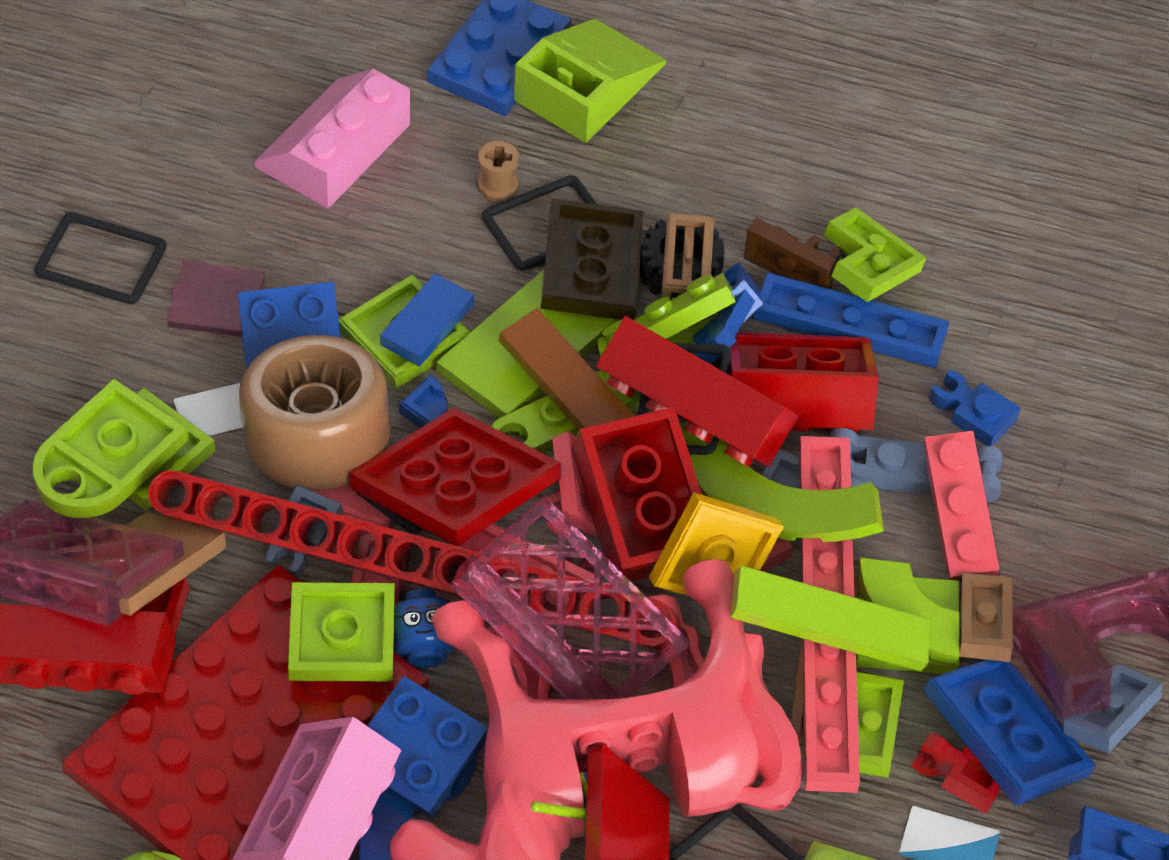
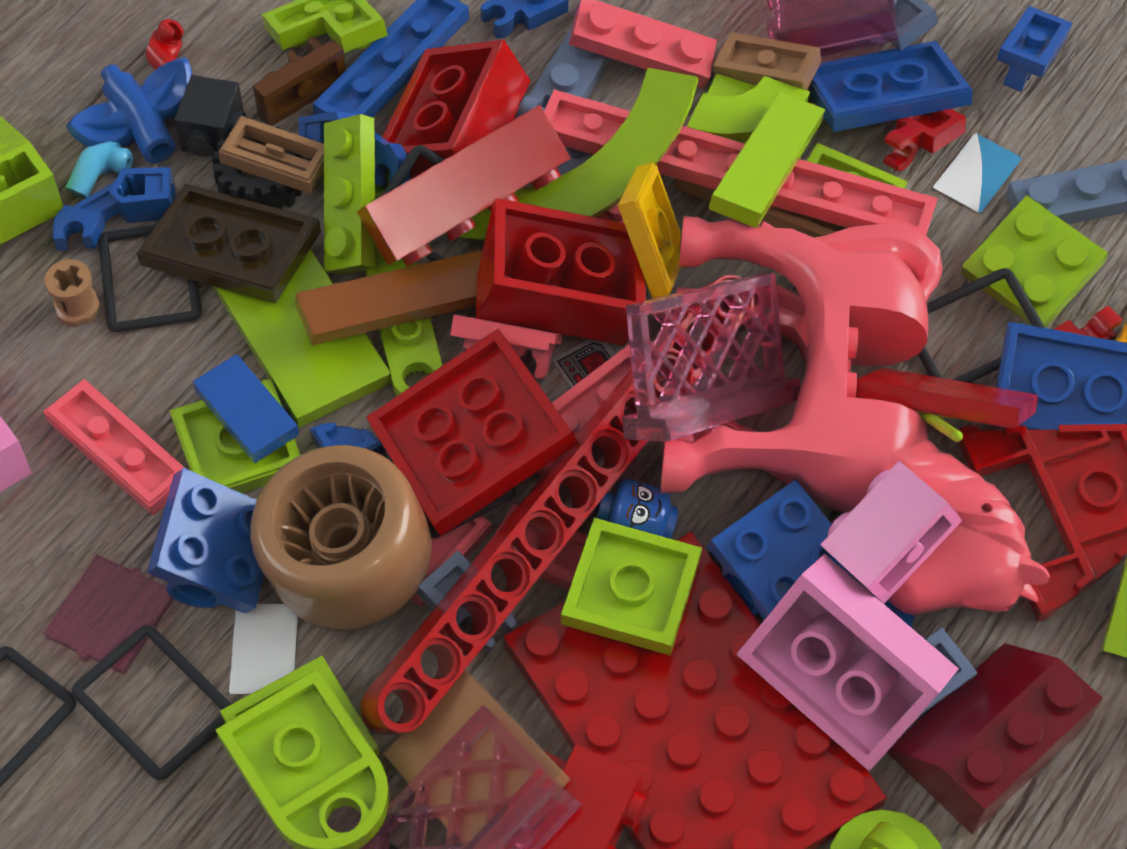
camera: 70 degrees left, 5 degrees up
(120, 323) = (117, 733): none -> black piece
(372, 250) = (115, 445): none -> coral tile
(436, 792) = (890, 531): none -> bright pink brick
(617, 179) = (152, 193): none -> blue piece
(641, 143) = (94, 162): none -> medium azure arm
(705, 154) = (135, 110): none -> blue plant
(725, 198) = (207, 114): none -> black brick
(784, 153) = (164, 43): none -> red arm

